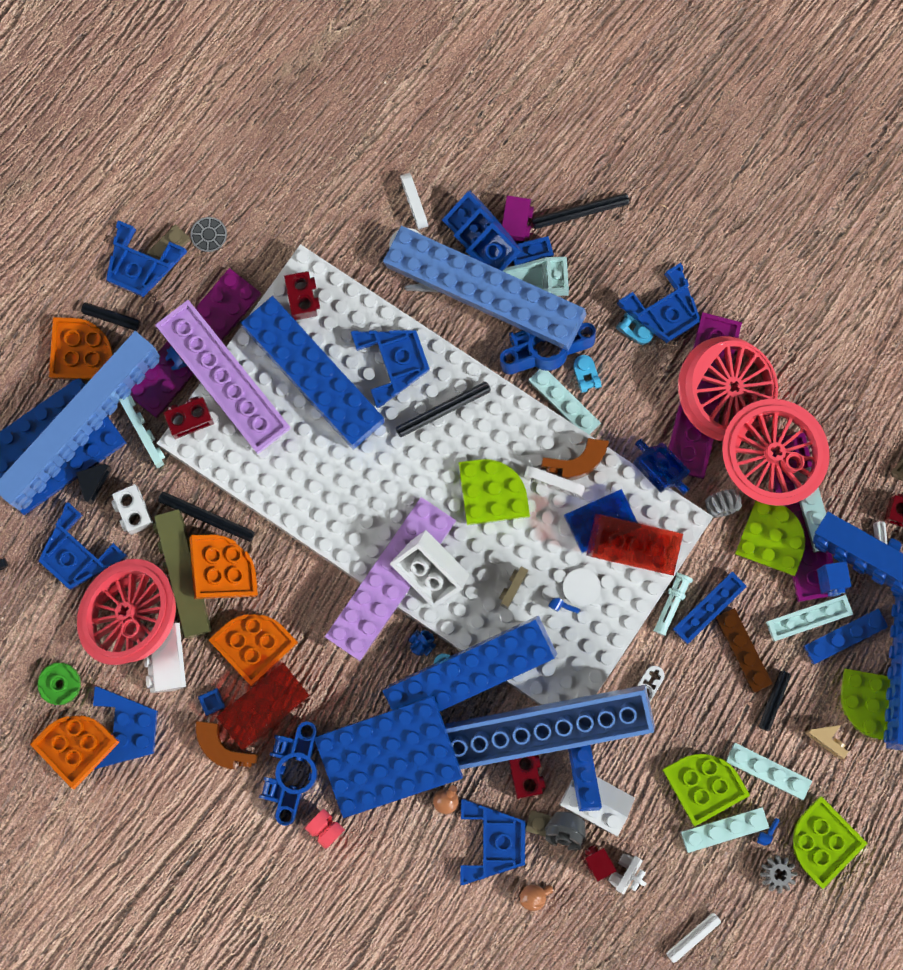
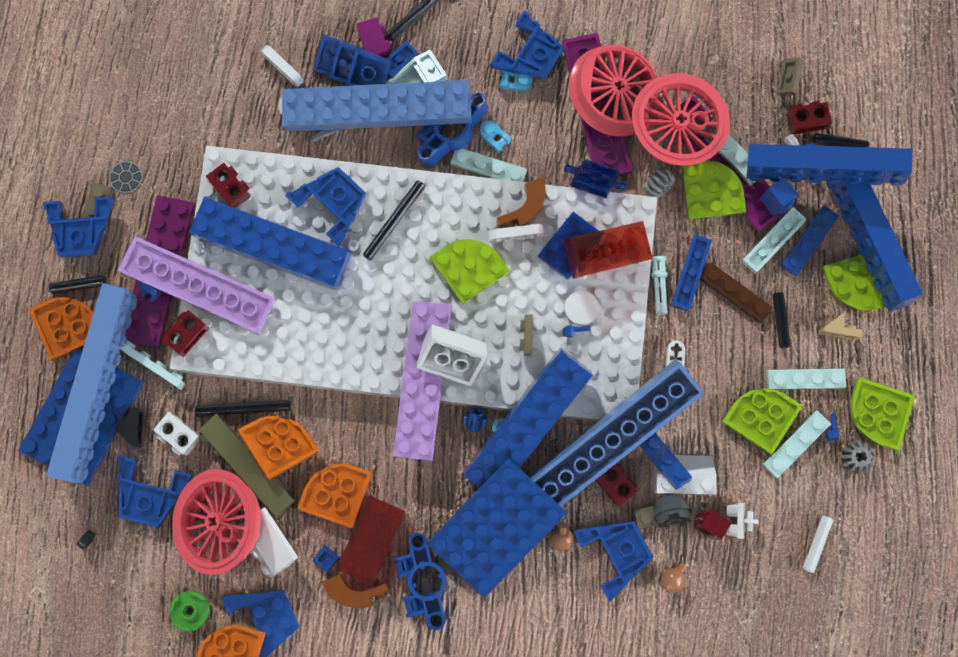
camera: 25 degrees left, 0 degrees up
(324, 829) = (474, 614): coral wheel -> none

